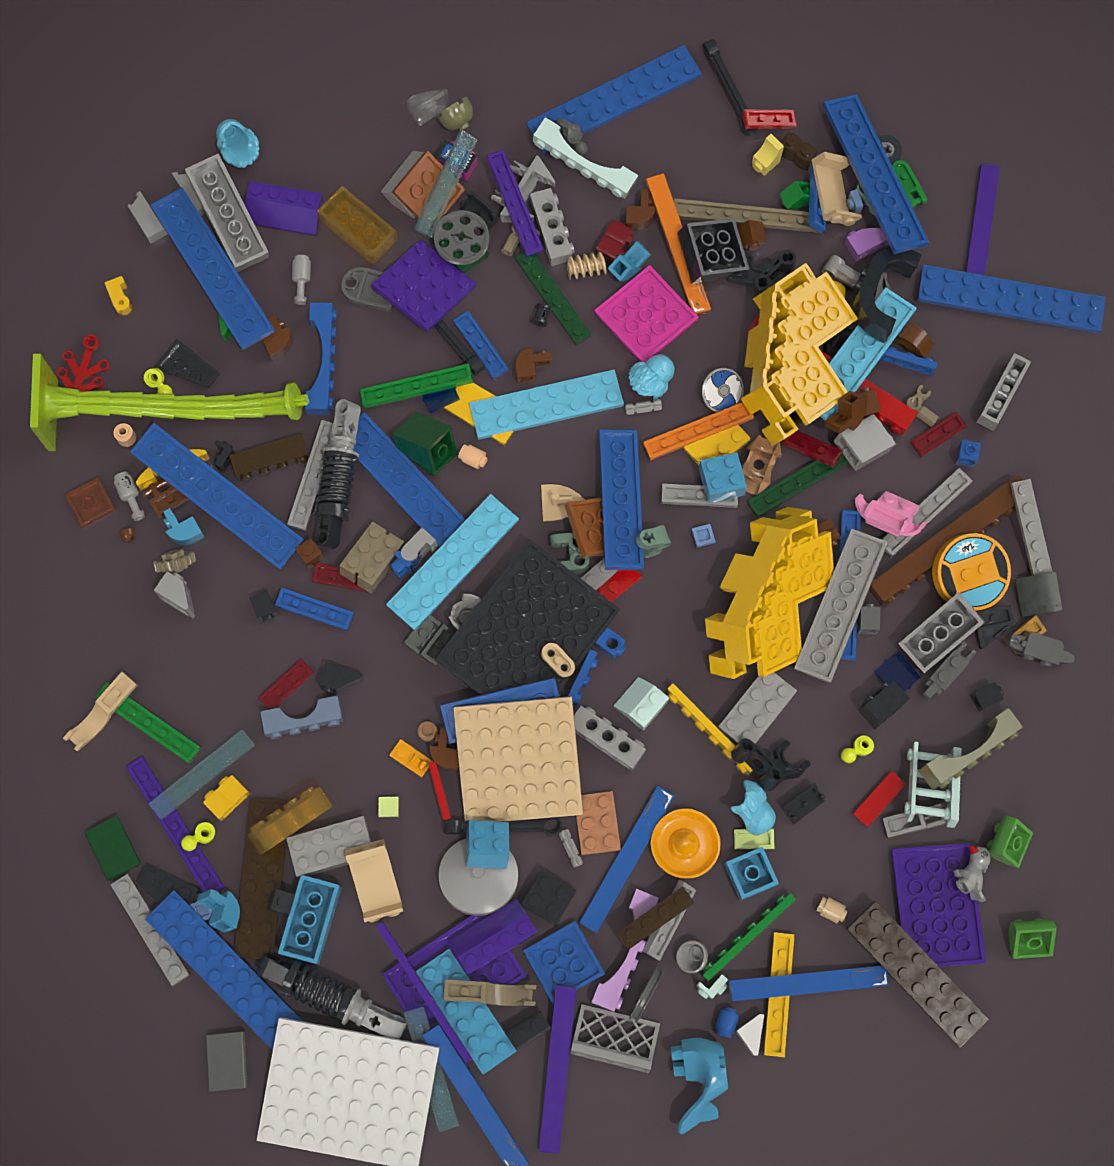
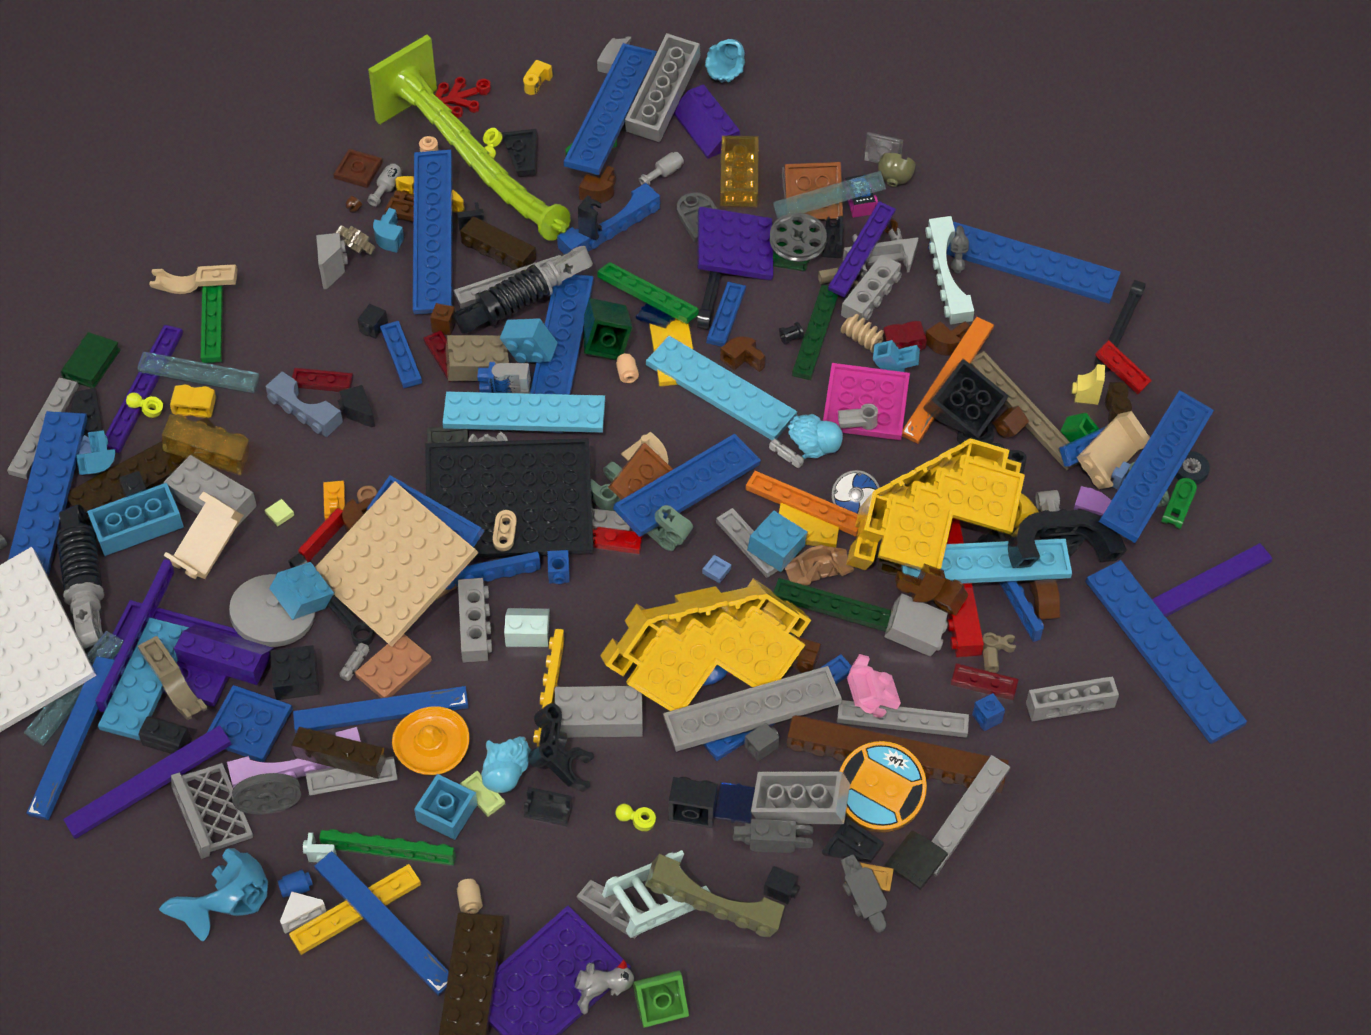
camera: 50 degrees right, 20 degrees down
(321, 377) = (588, 218): none -> black hinge
(395, 510) = (528, 340): none -> dark azure brick
(662, 335) = (865, 417): none -> light grey piece
(692, 956) = (332, 814): light grey piece -> none
(813, 448) = (873, 592): dark red tile -> none
(879, 799) = (603, 865): red tile -> none

